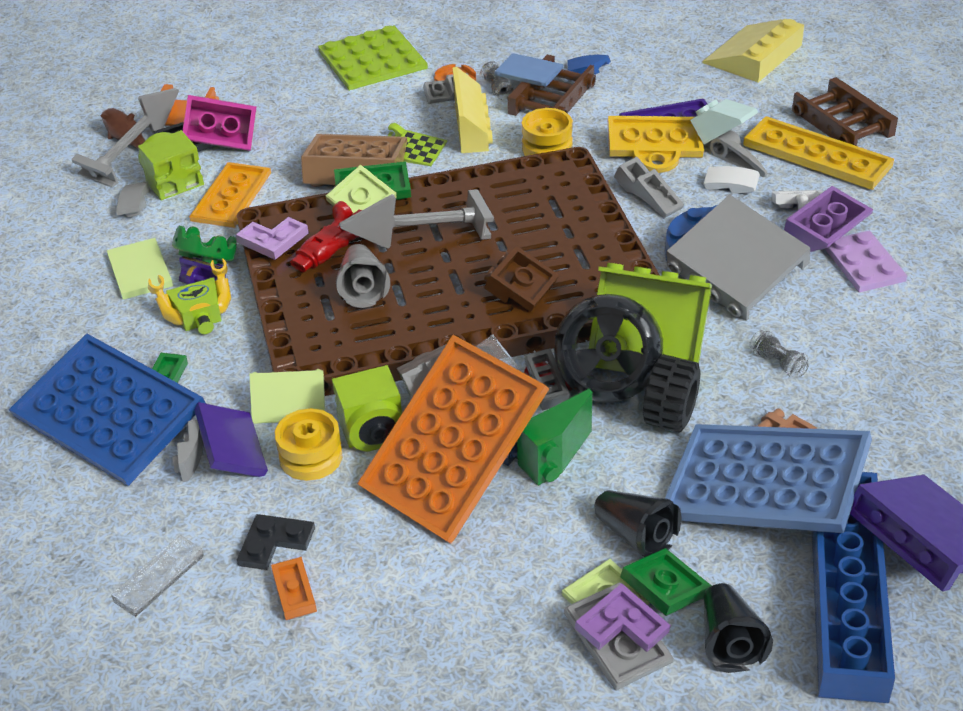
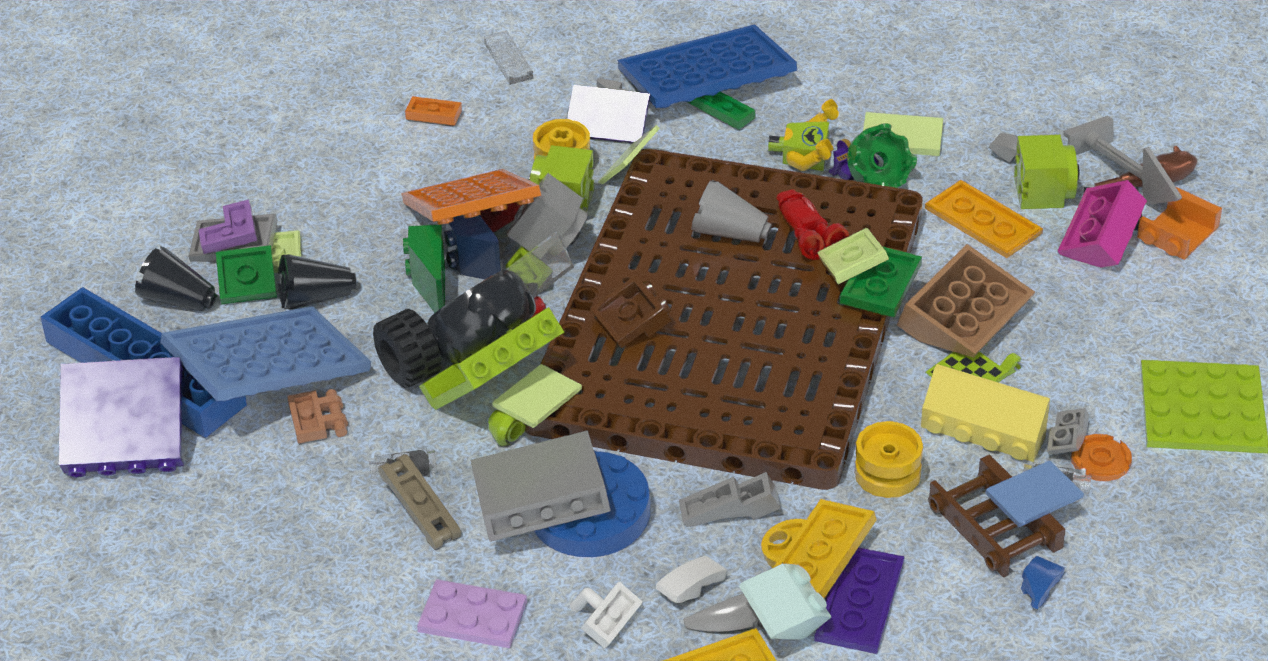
camera: 120 degrees right, 0 degrees up
(268, 534) = (494, 116): black plate -> none
(275, 241) = (840, 191): lavender plate -> none
(378, 220) = (761, 324): light grey piece -> none
(806, 323) = (419, 500): none -> dark tan plate
(826, 218) = (537, 593): medium lavender slope -> none

